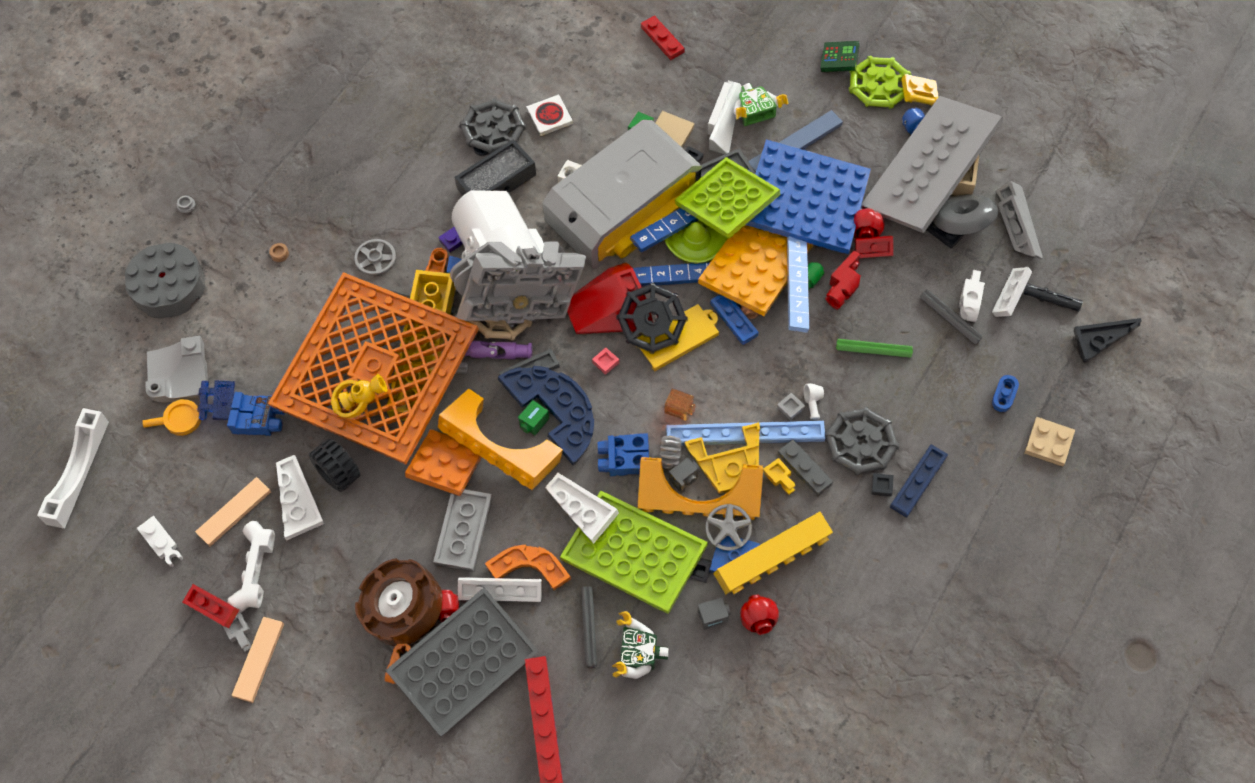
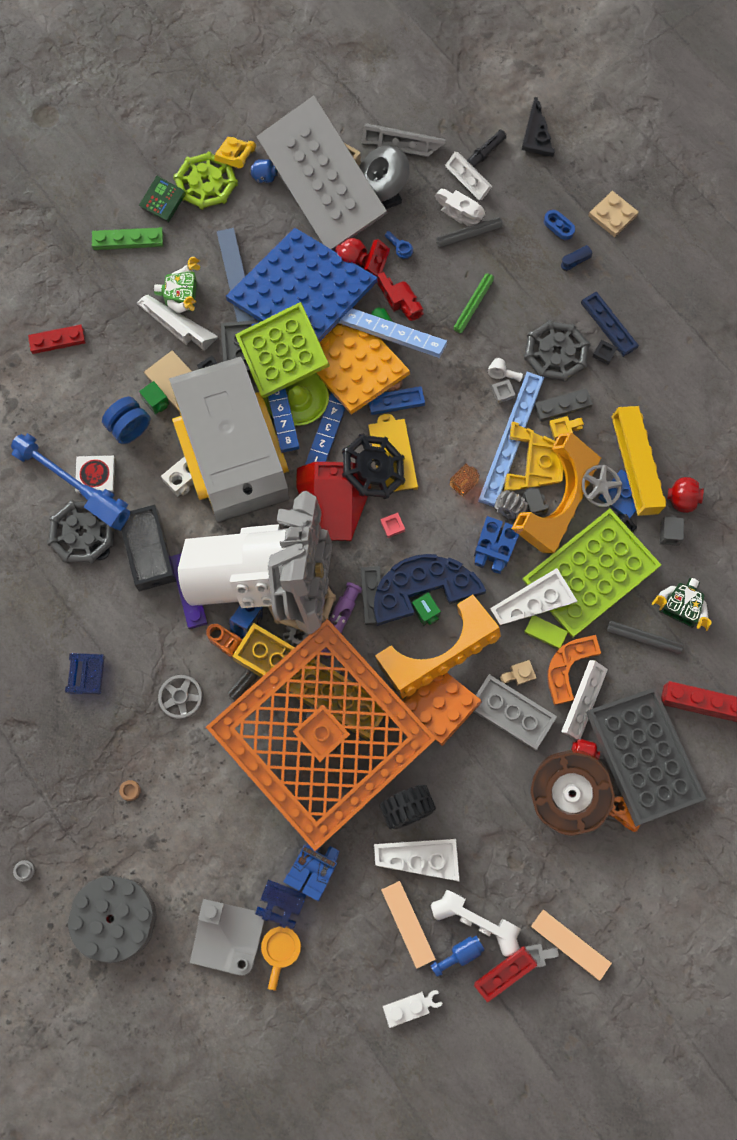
camera: 70 degrees left, 10 degrees up
(61, 500) = (300, 1076): white arch -> none
(218, 564) = (462, 953): none -> blue piece
(361, 392) = (354, 758): yellow piece -> none
(368, 183) = (90, 676): none -> clear blue plate
(504, 524) = (520, 673): none -> tan plate
(514, 121) = (99, 502): none -> blue bar
(556, 532) = (546, 632): none -> lime tile
(605, 112) = (126, 420): none -> blue wheel
(787, 48) = (127, 238): none -> bright green plate
(899, 265) = (403, 248): none -> blue plate
(976, 422) = (575, 258): none -> dark blue bar

